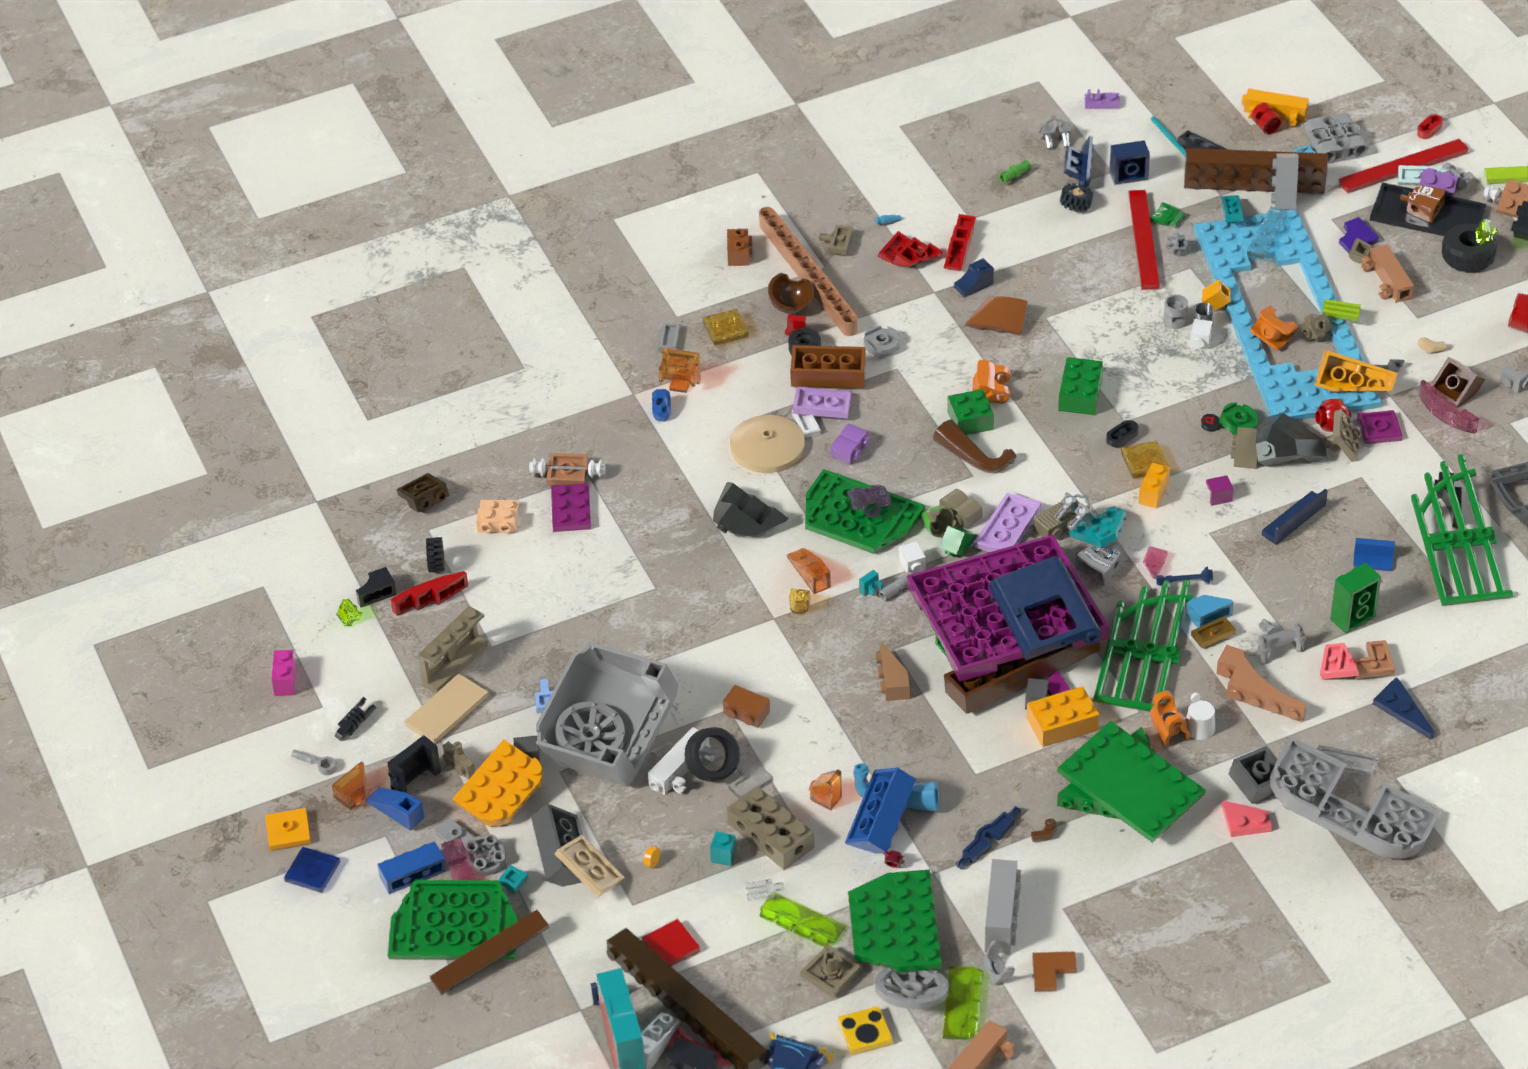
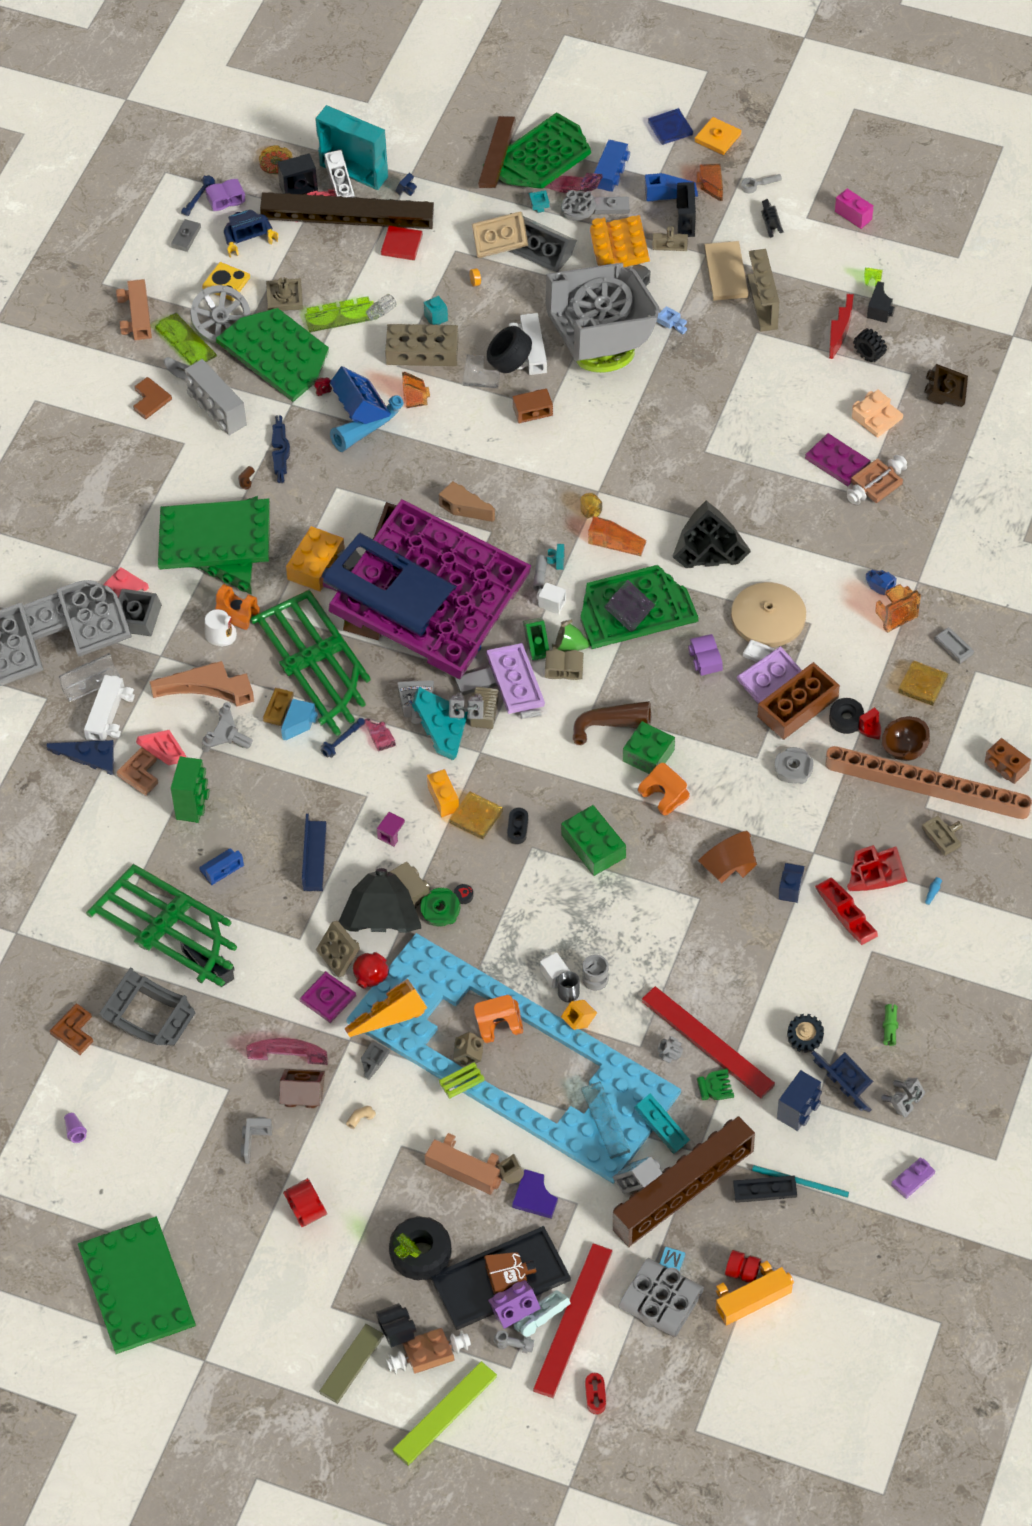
camera: 135 degrees right, 10 degrees up
(1358, 724) = (105, 707): none -> white brick

